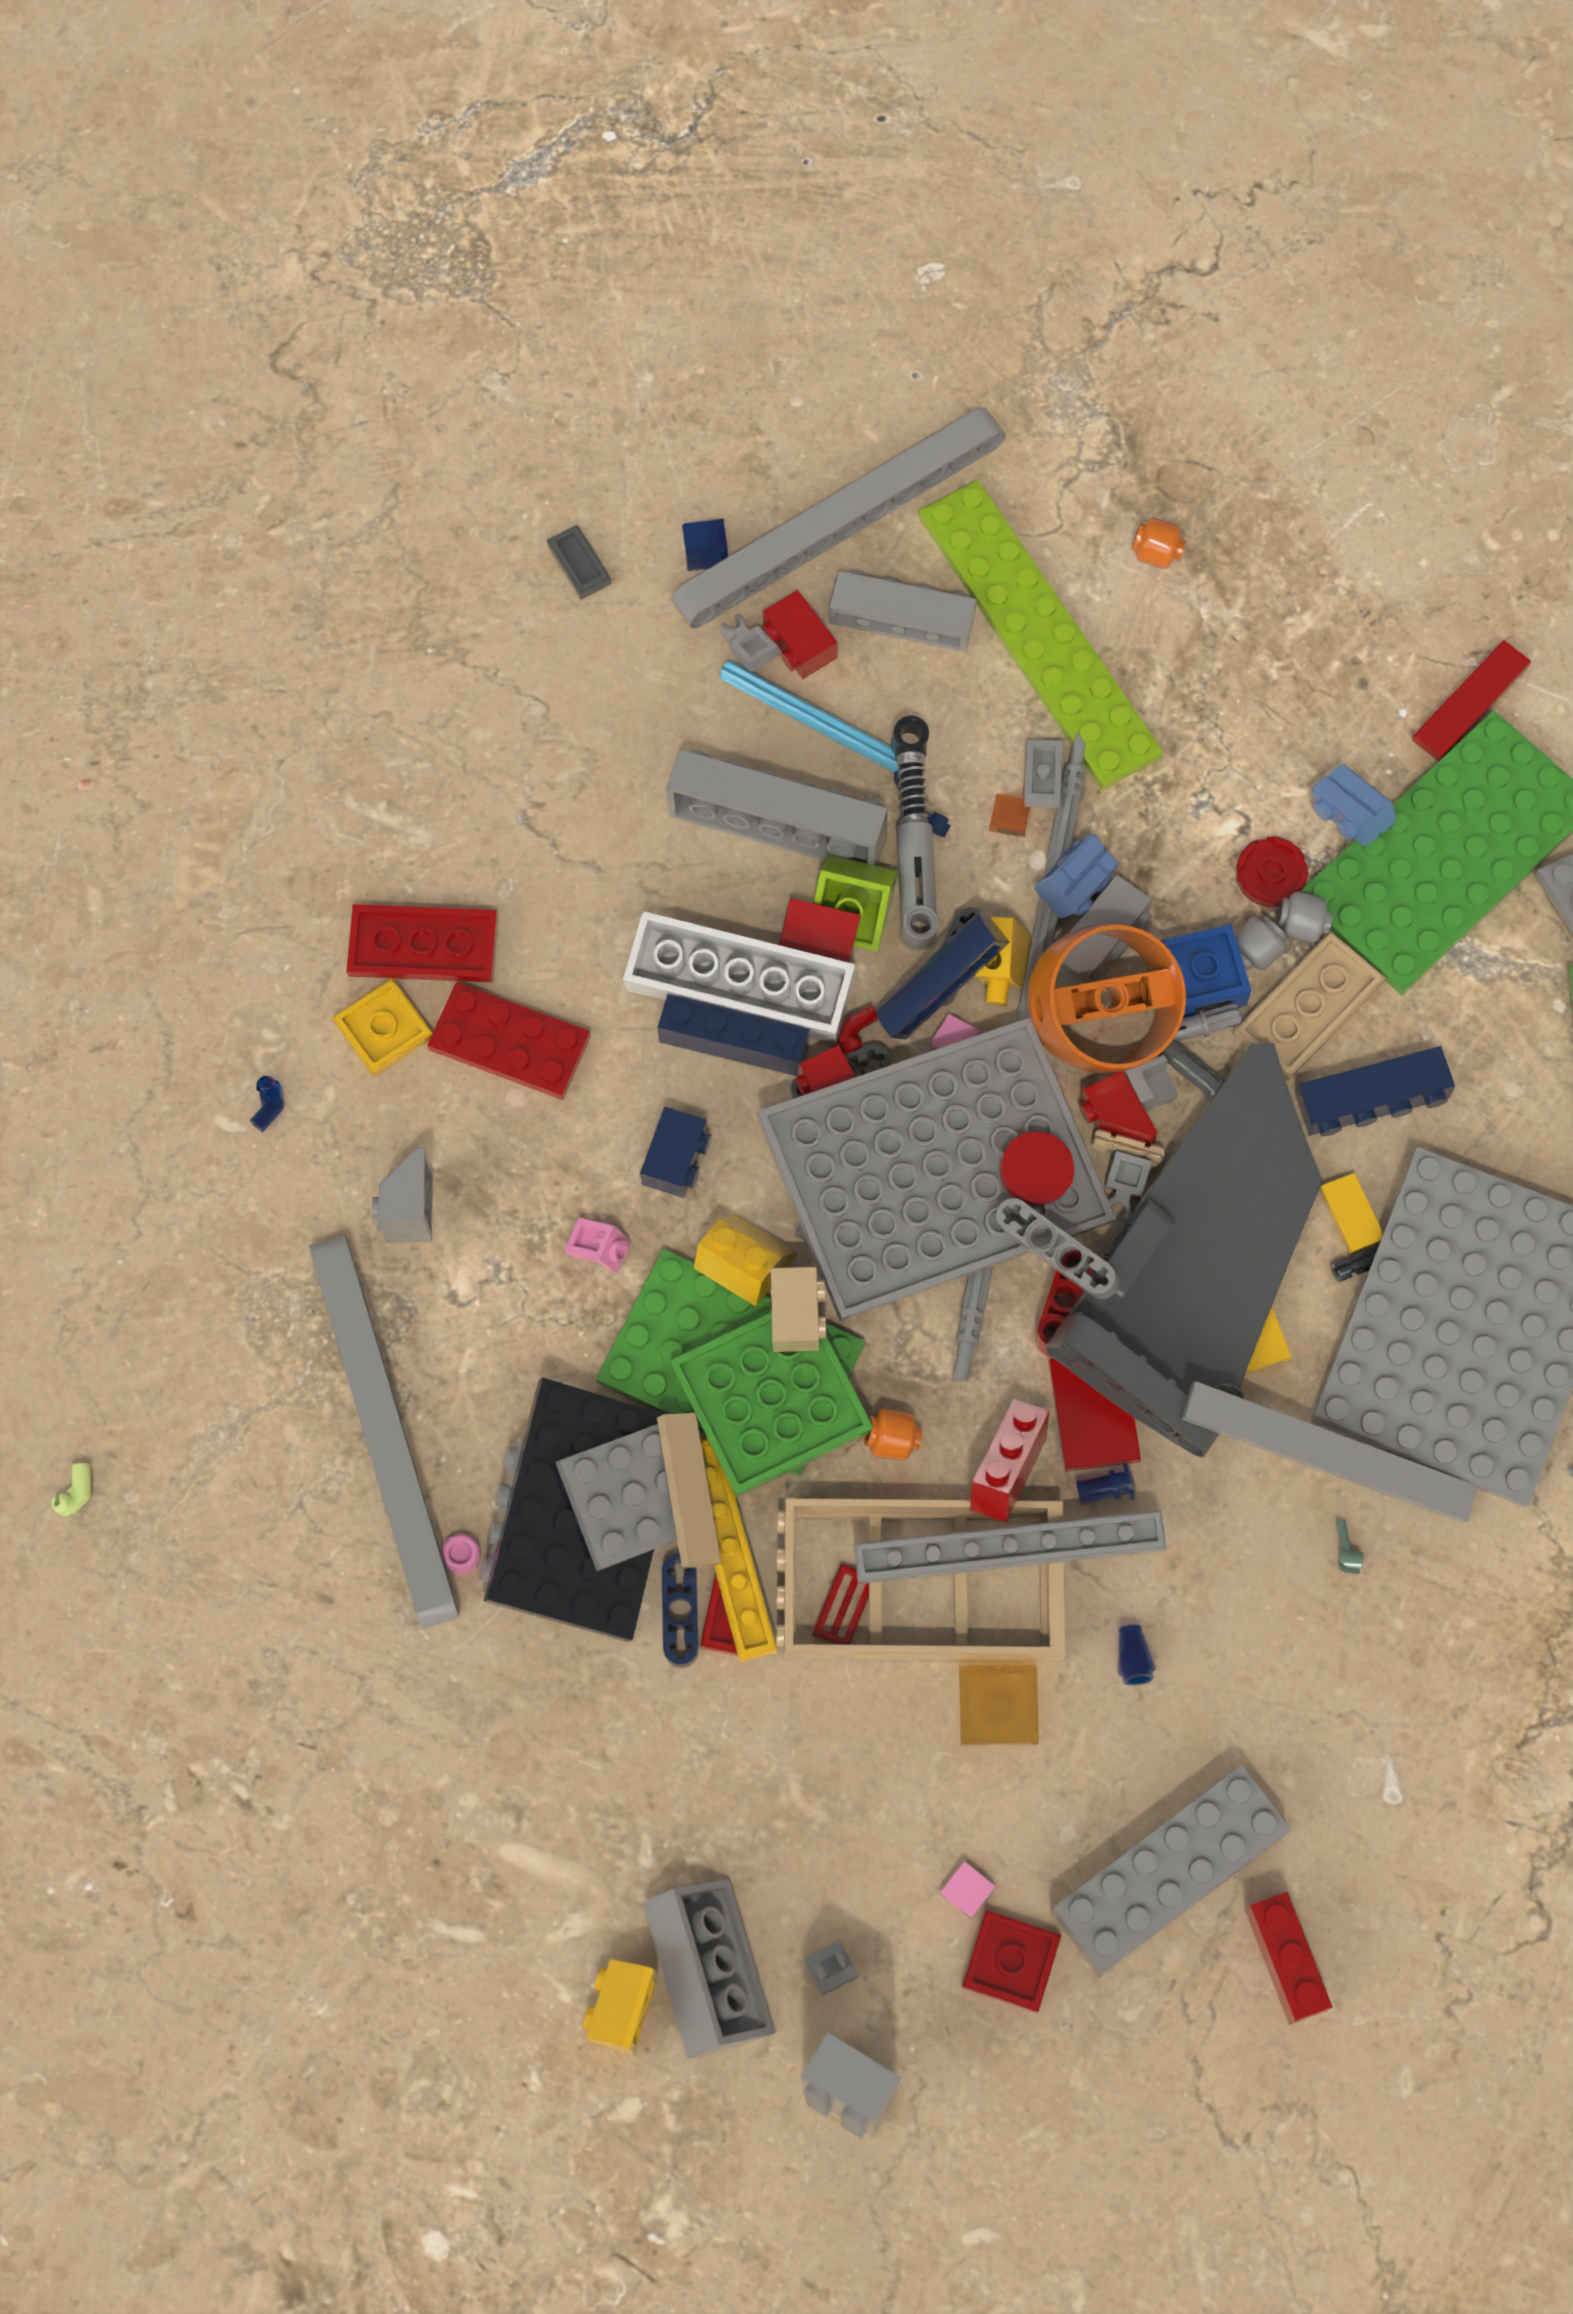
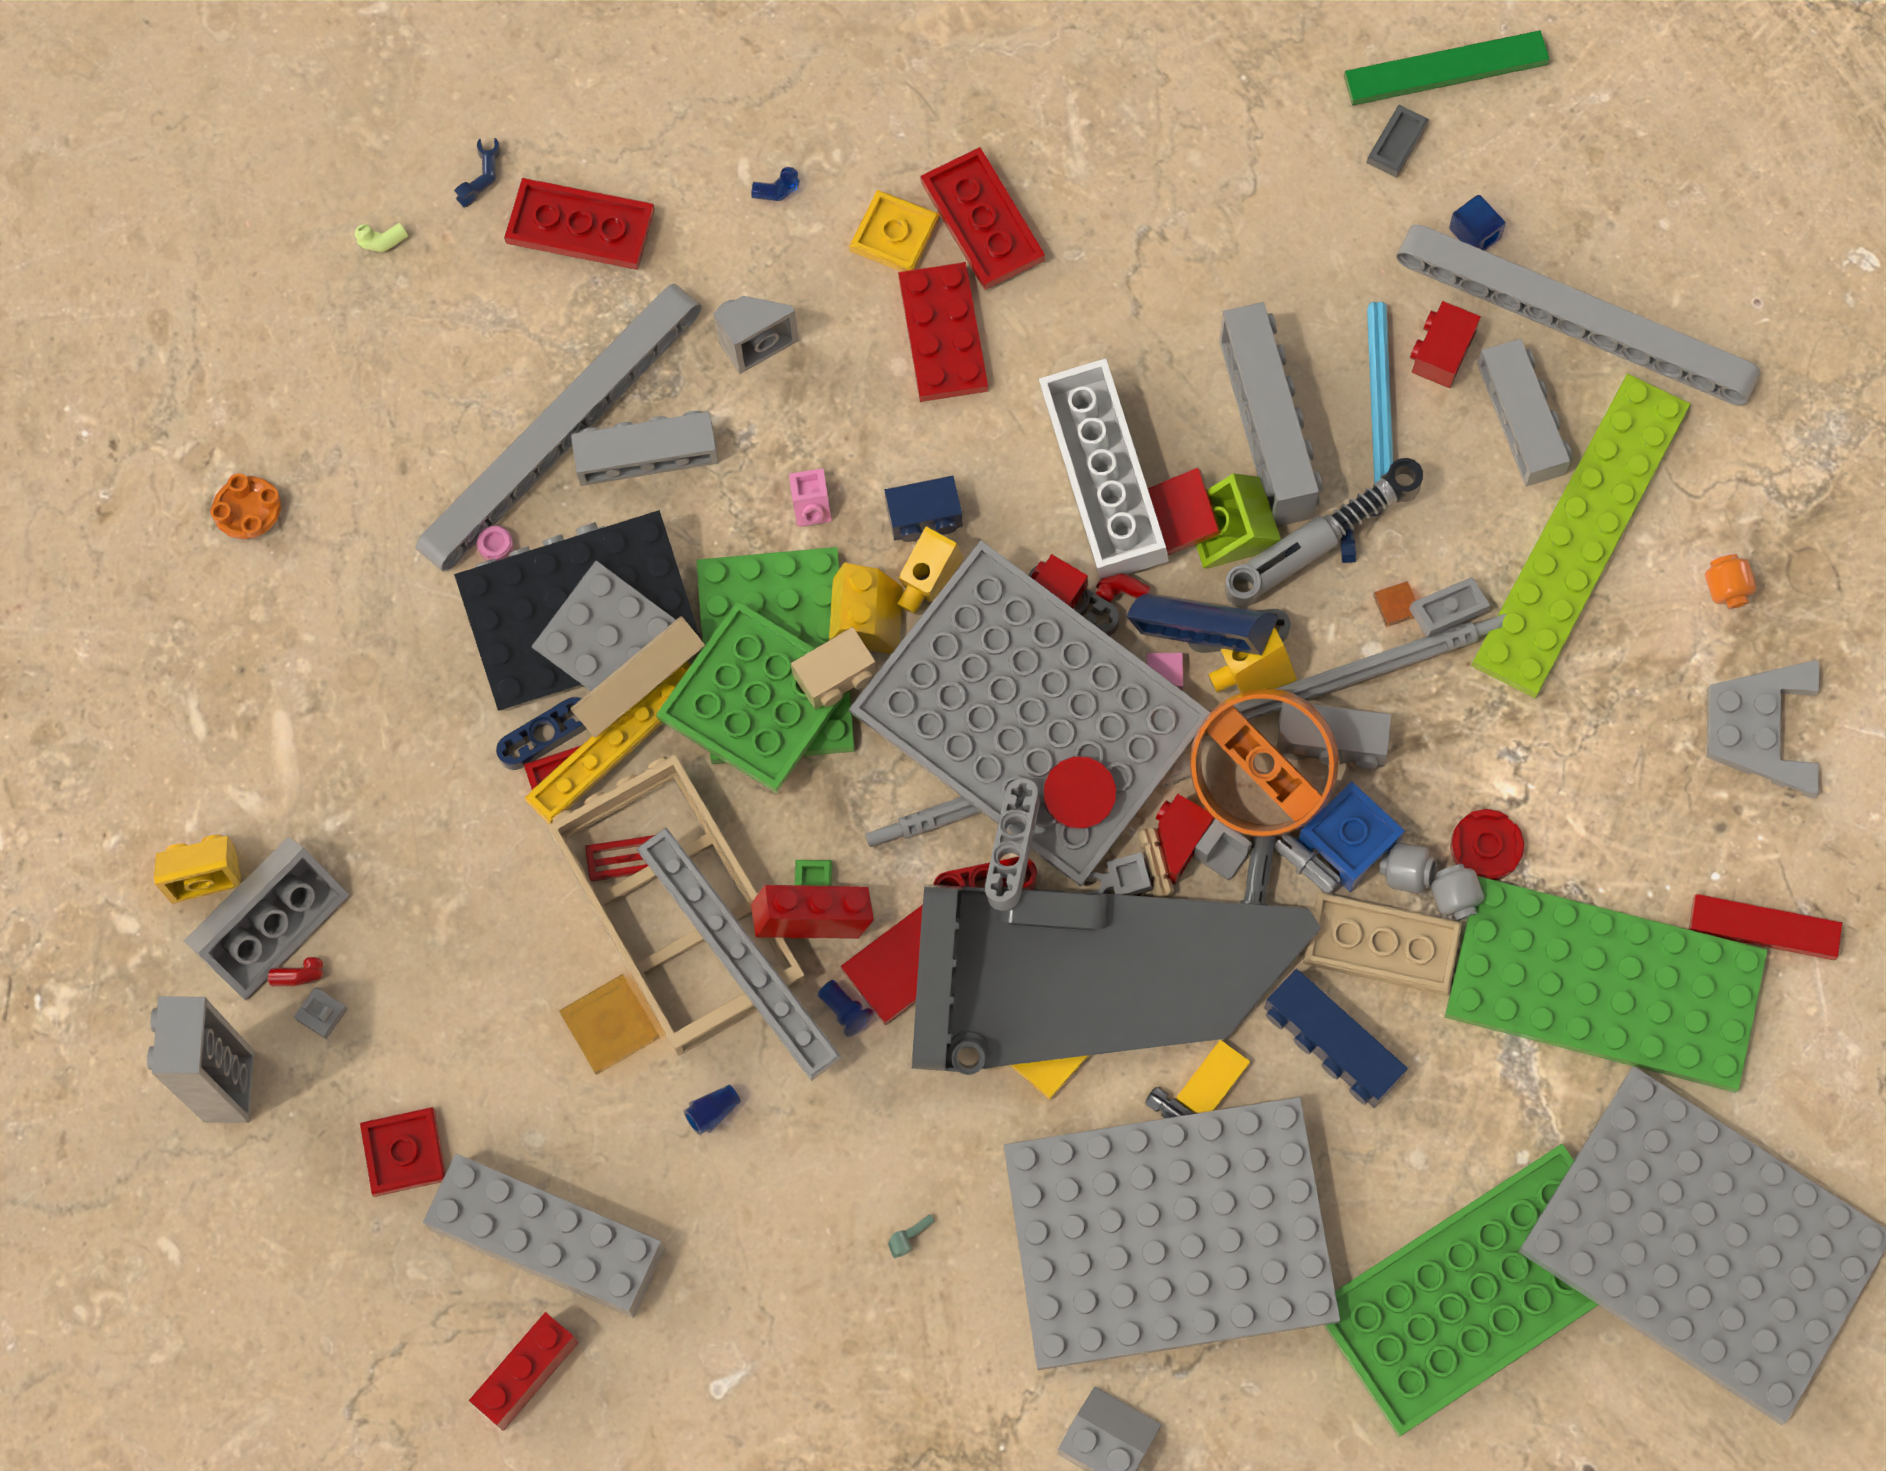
camera: 60 degrees right, 0 degrees up
(82, 1381) = (467, 191): none -> dark blue arm
(186, 1299) = (579, 223): none -> red plate
(273, 1767) = (246, 506): none -> orange dish
(455, 1364) = (644, 448): none -> light grey brick
(536, 483) = (1446, 67): none -> green tile
(733, 1035) = (1052, 493): dark blue brick -> none
(736, 1165) = (931, 556): none -> yellow torso
(751, 646) = (1410, 311): light grey plate -> none
(784, 1970) = (293, 977): none -> red arm
(893, 1434) = (785, 811): orange head -> none
(966, 1447) = (813, 872): none -> bright green tile
(967, 1890) = (442, 1084): bright pink tile -> none
(1077, 876) = (1368, 684): medium blue brick -> none
(1287, 608) = (1746, 725): none -> light grey wing
(1329, 1452) = (976, 1170): light grey tile -> none
(1353, 805) = (1588, 876): medium blue brick -> none

